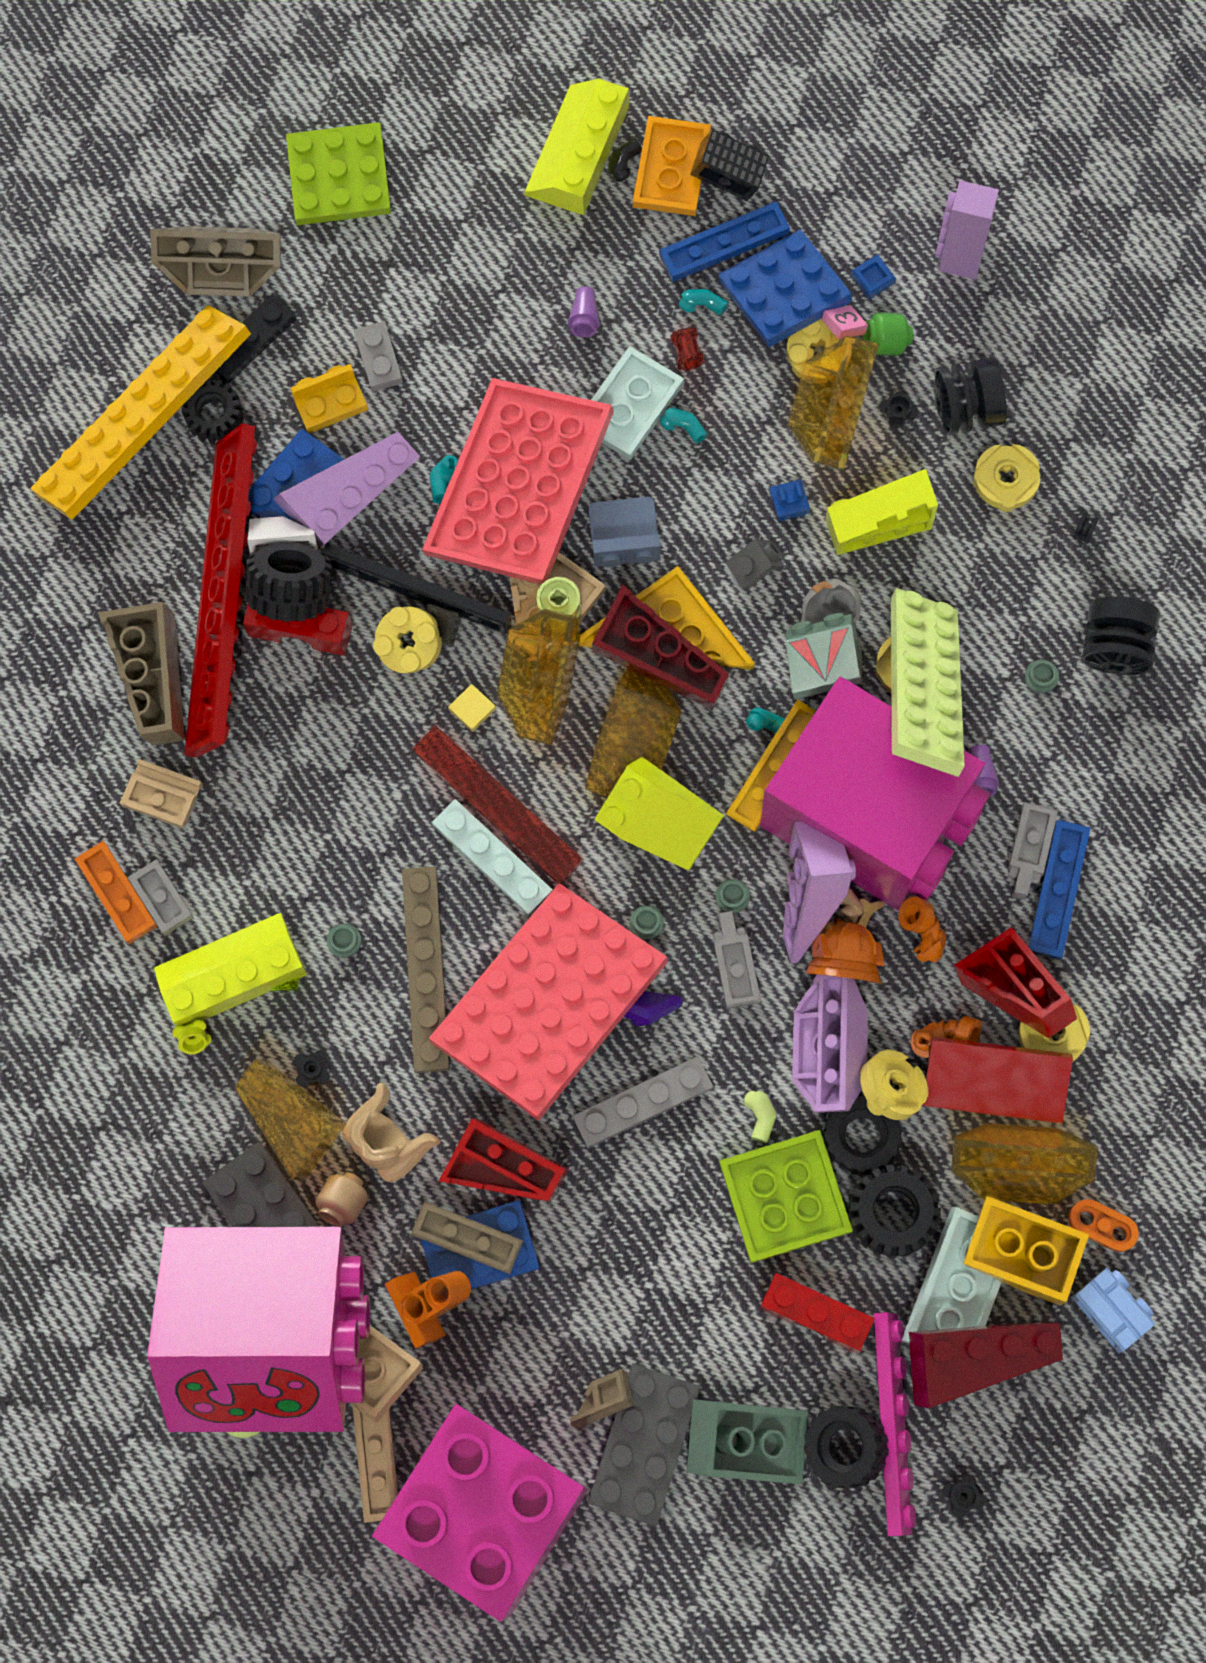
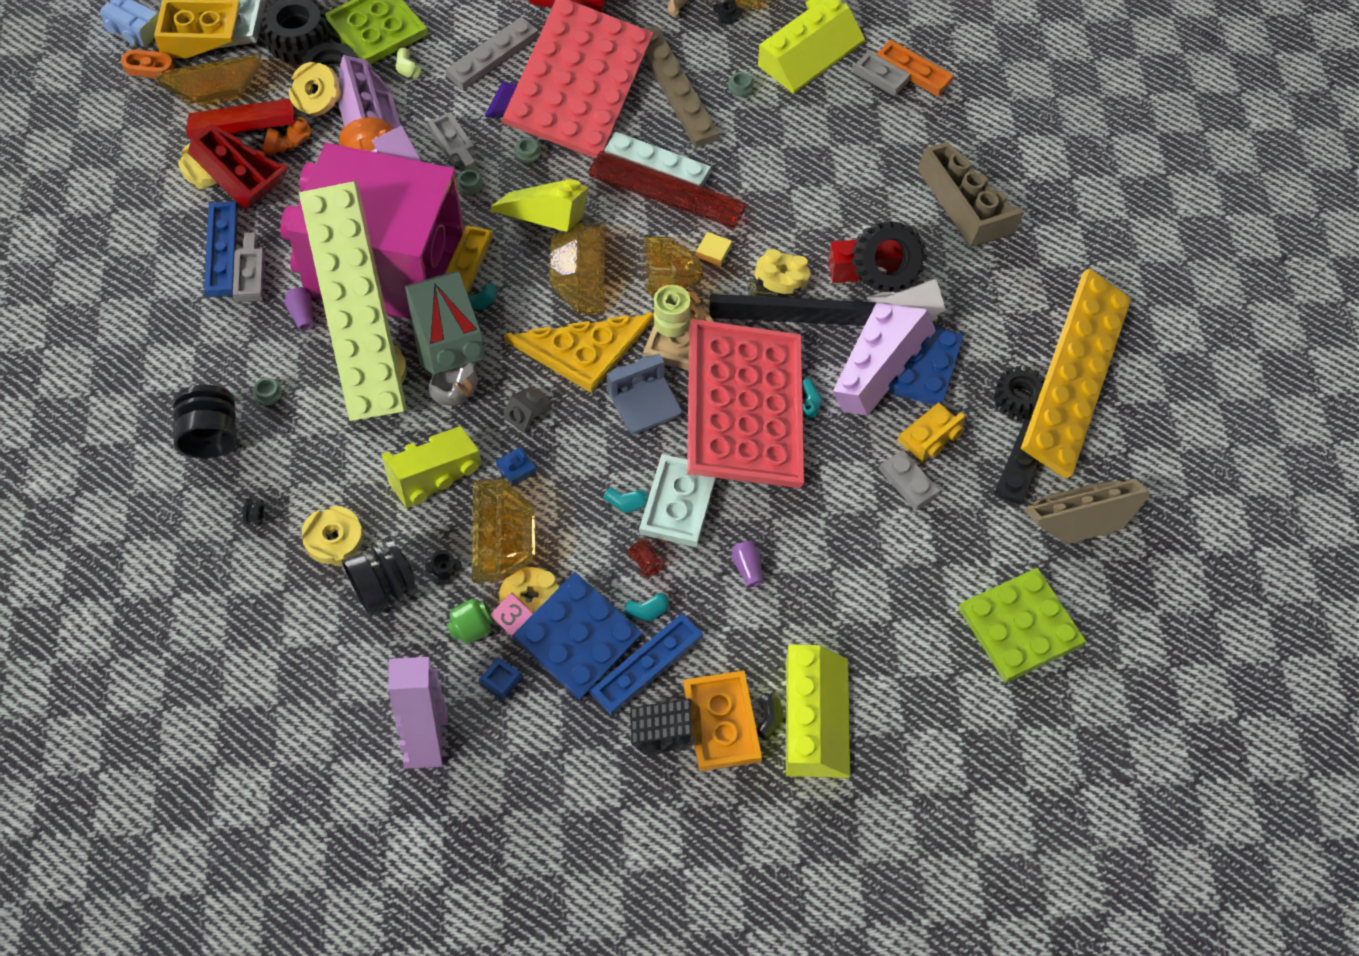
camera: 155 degrees right, 15 degrees down
(161, 794) = (914, 131): tan plate -> none
(220, 592) = (943, 263): red plate -> none
(653, 648) = (580, 304): dark red wedge -> none

